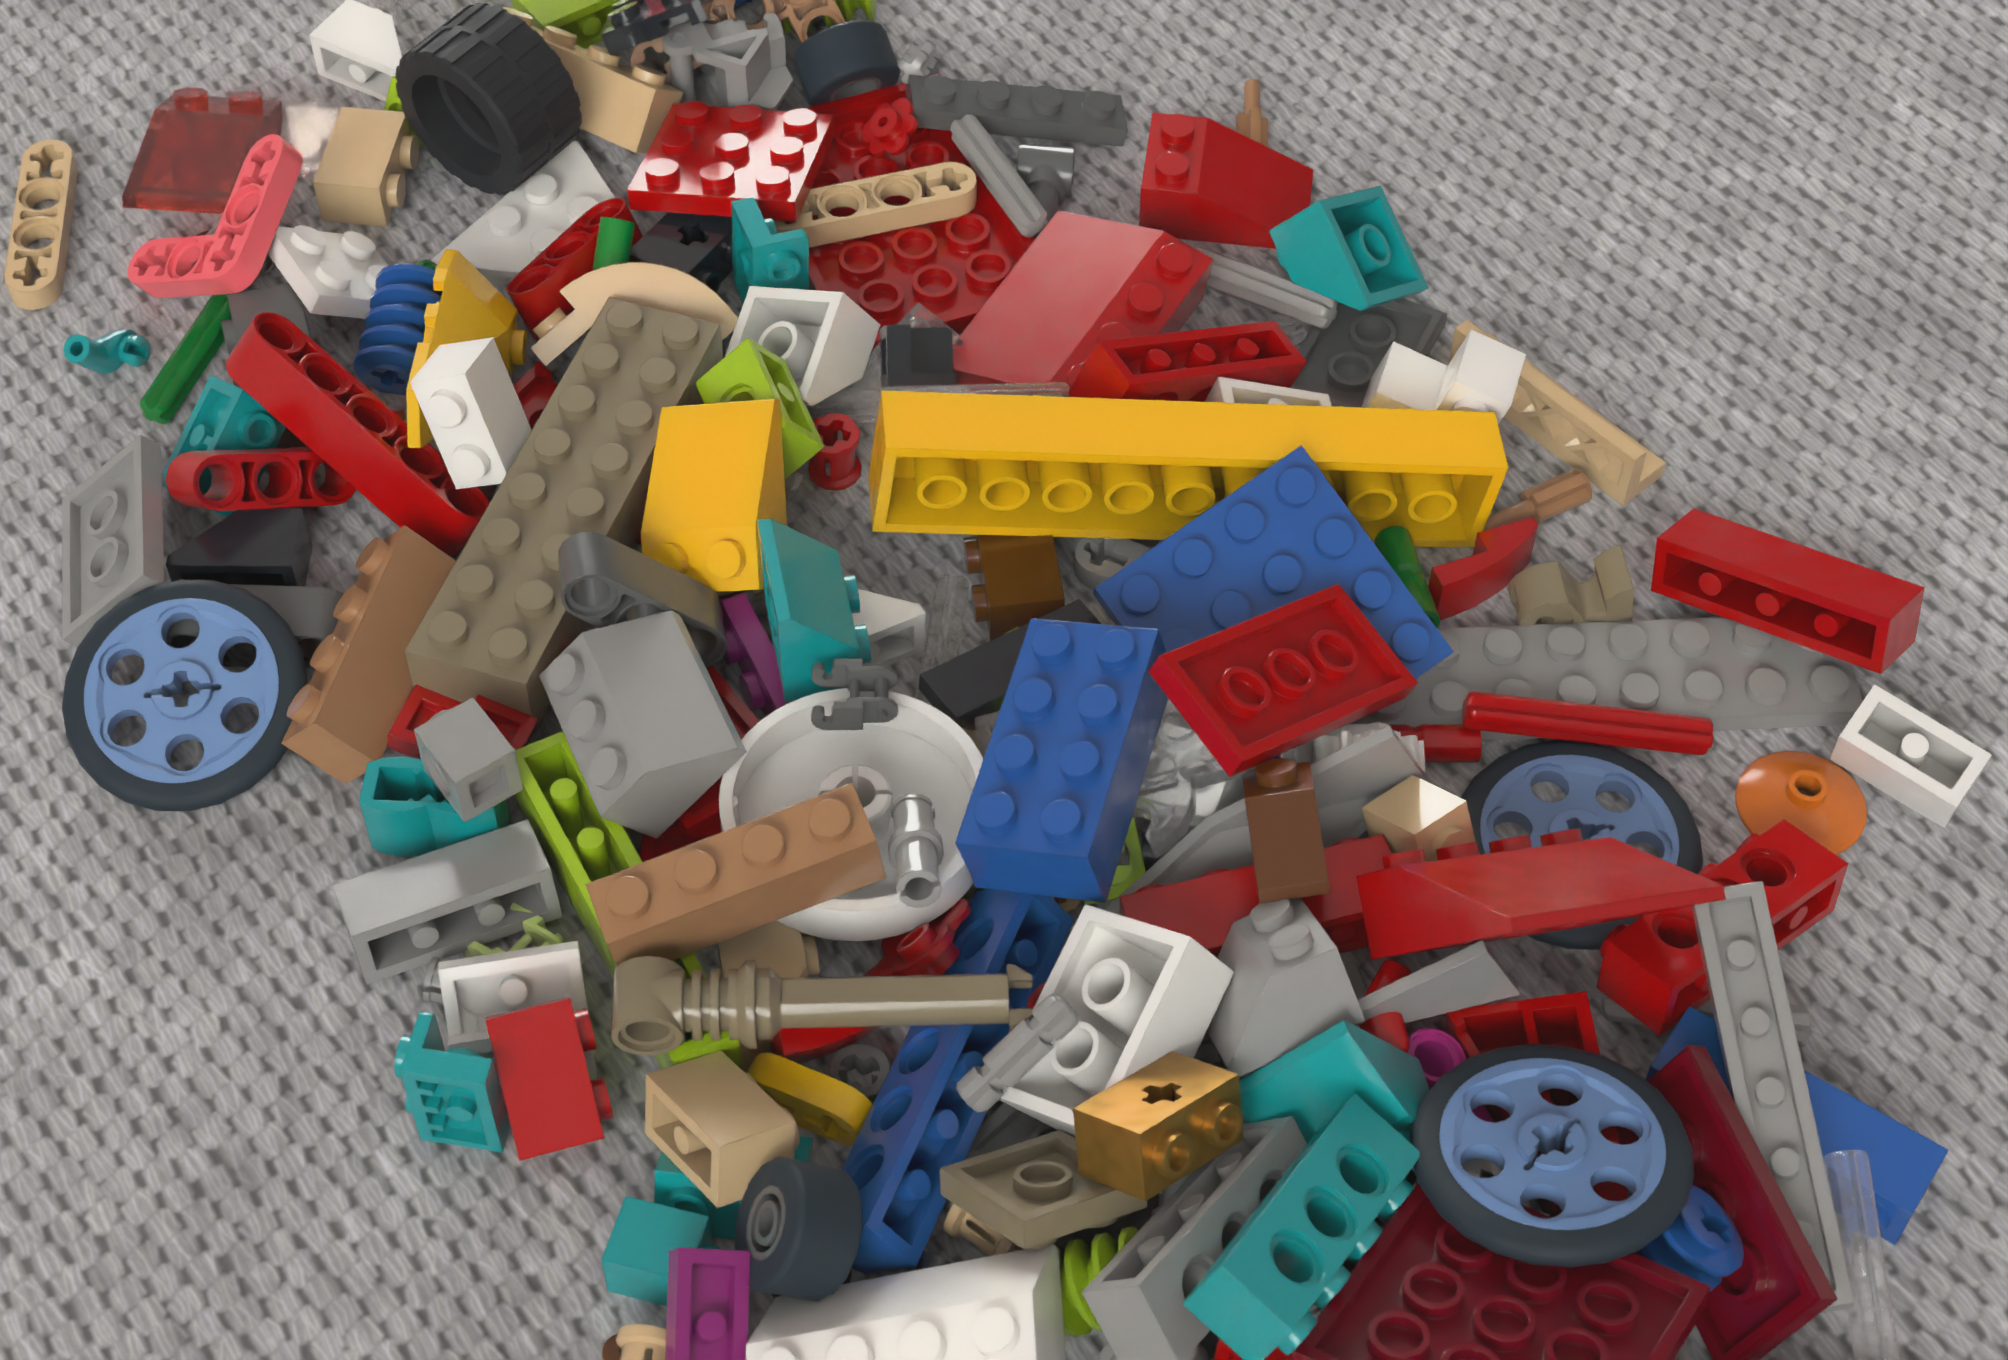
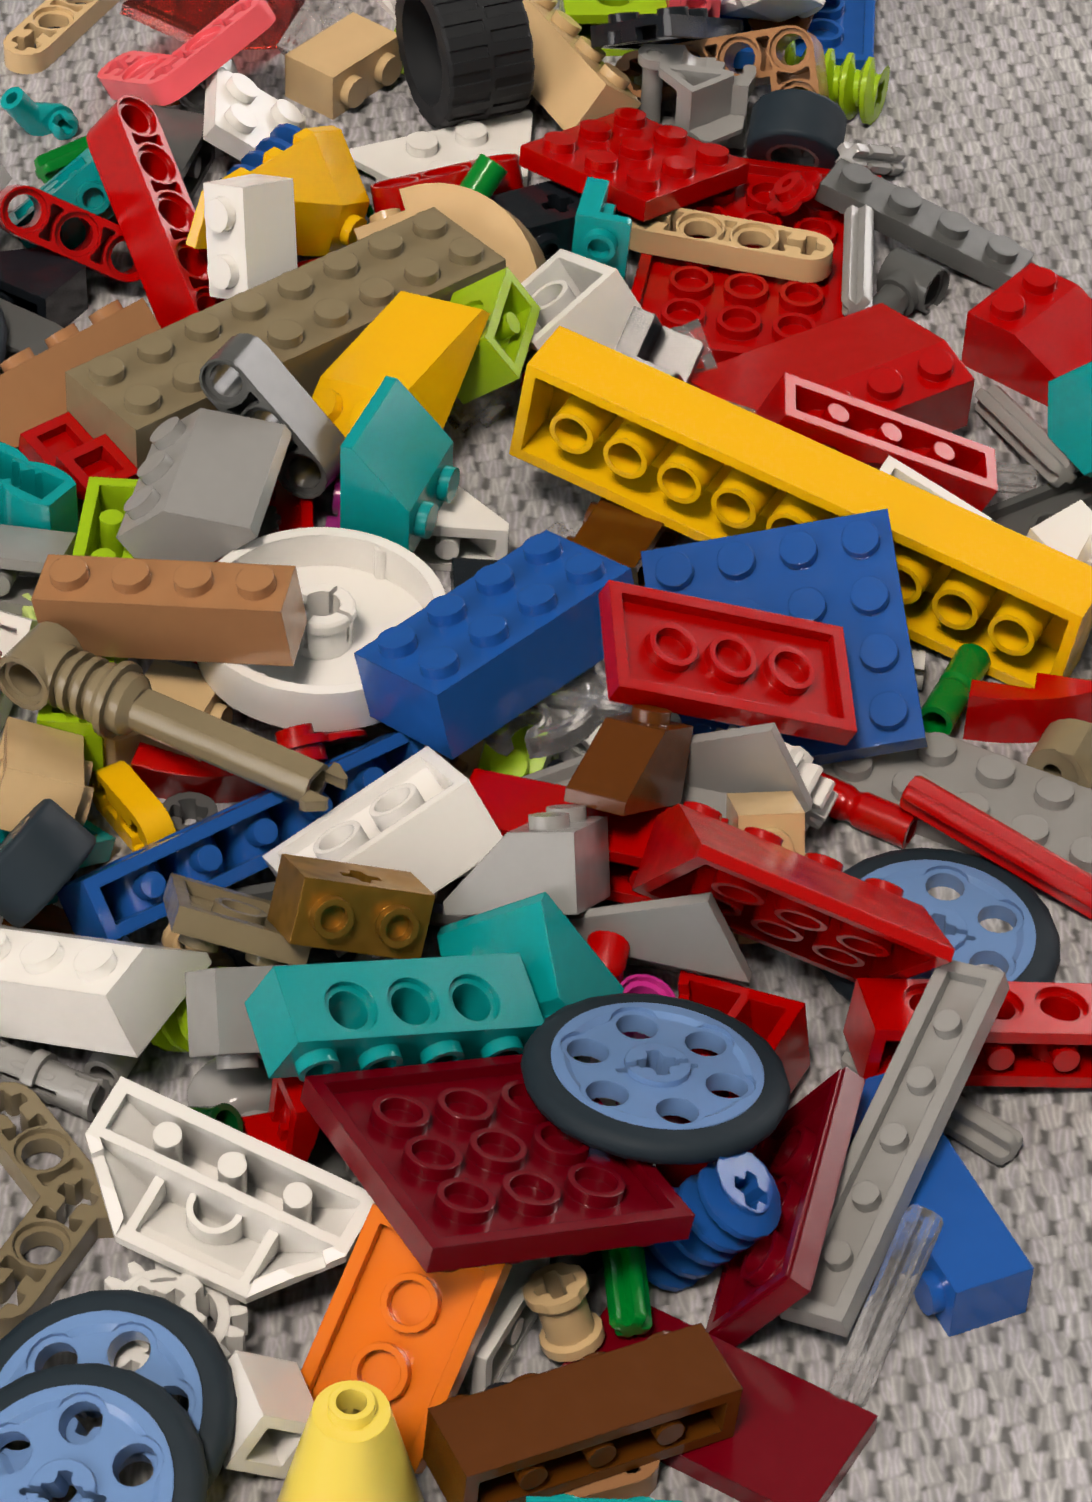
camera: 30 degrees right, 10 degrees down
(468, 759) = (48, 458): light grey brick -> none
(857, 709) = (381, 548): dark grey piece -> none
(915, 850) = (326, 654): light grey pin -> none
(1017, 1053) = (293, 823): light grey axle -> none

